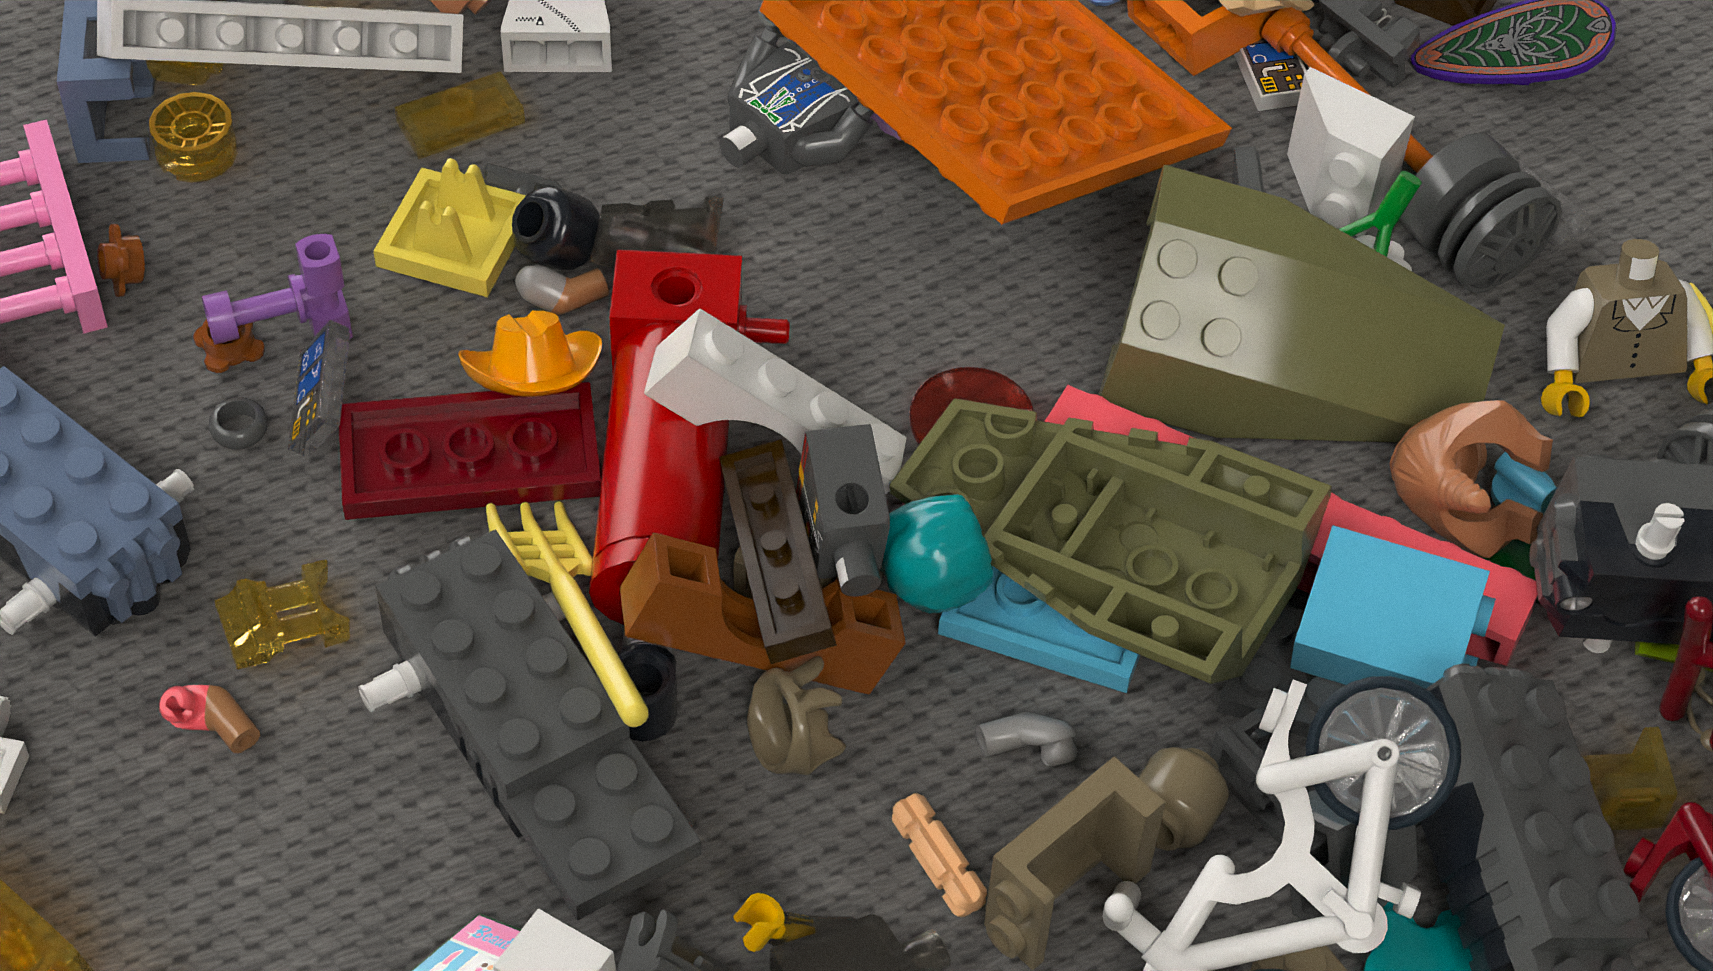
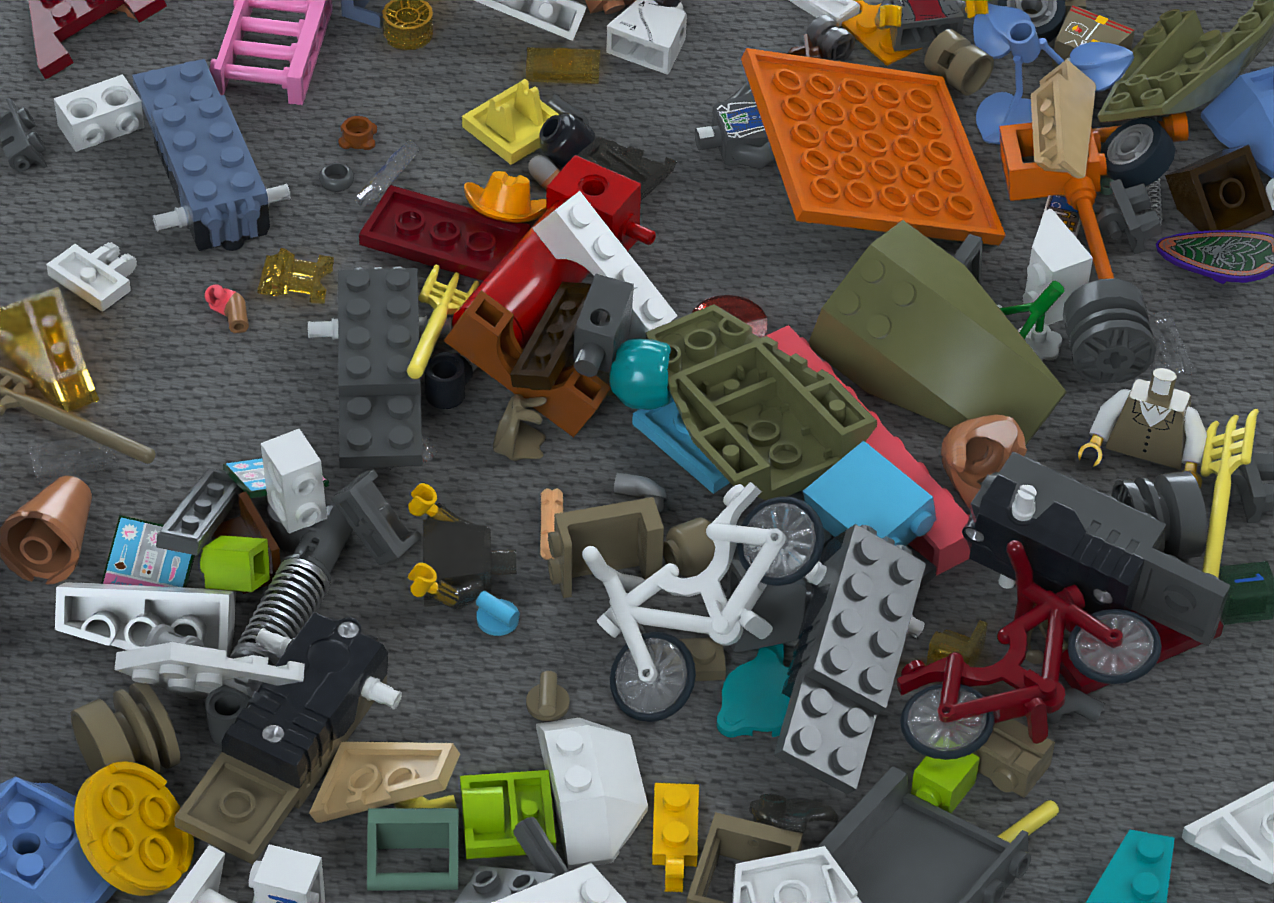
camera: 30 degrees right, 5 degrees down
(121, 260) = (327, 71): dark orange plate -> none
(311, 295) = (408, 121): medium lavender bar -> none

